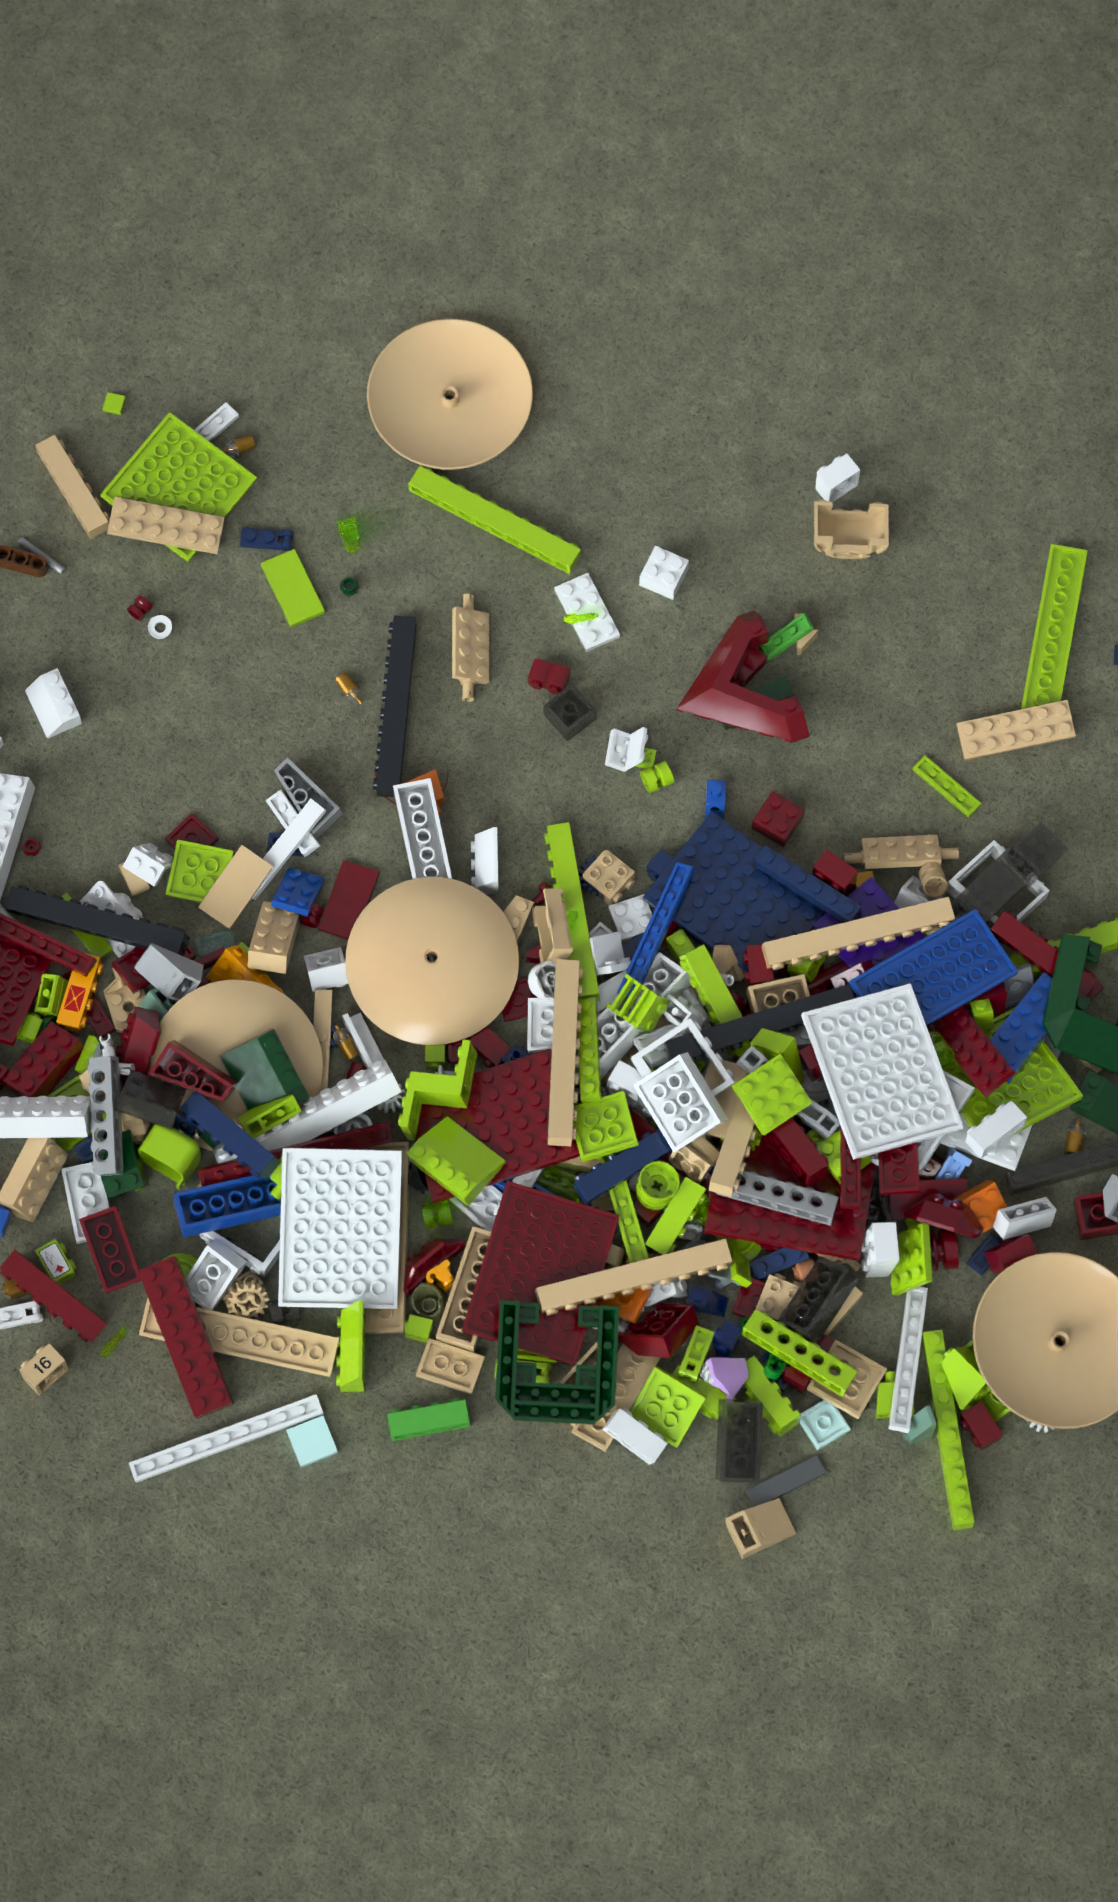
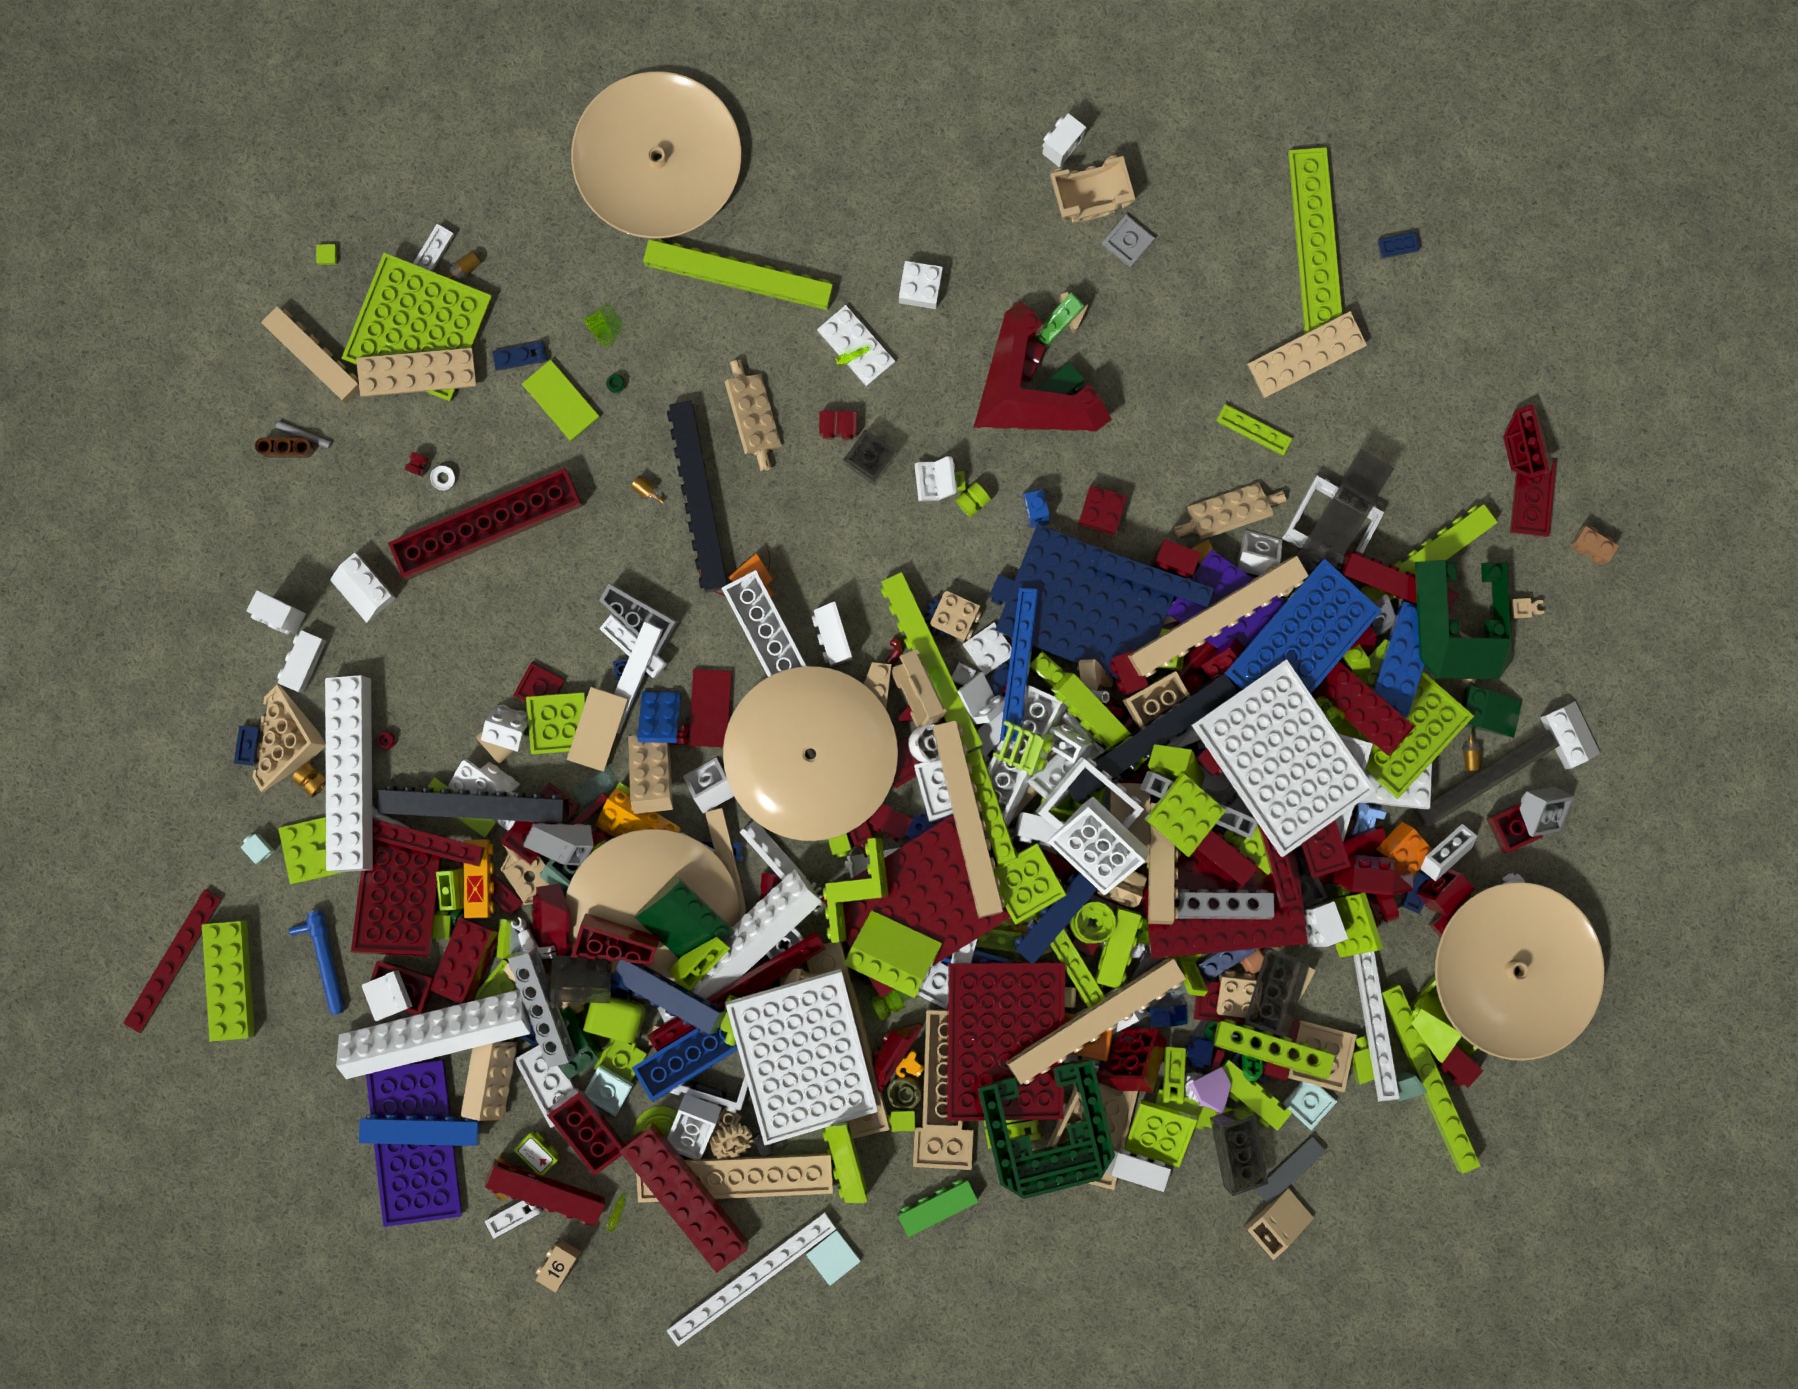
camera: 15 degrees left, 15 degrees up
(143, 1222) = (608, 1090): none -> light aqua tile
(159, 1199) = (620, 1059): none -> lime plate
(187, 677) = (485, 524): none -> dark red brick
(345, 1043) = (749, 856): pearl gold piece -> none
(745, 1352) = (1217, 1059): none -> dark red tile
(874, 586) = (1128, 241): none -> light grey tile
(933, 879) = (1269, 533): tan wheel -> none
(995, 1129) = (1404, 780): white brick -> none

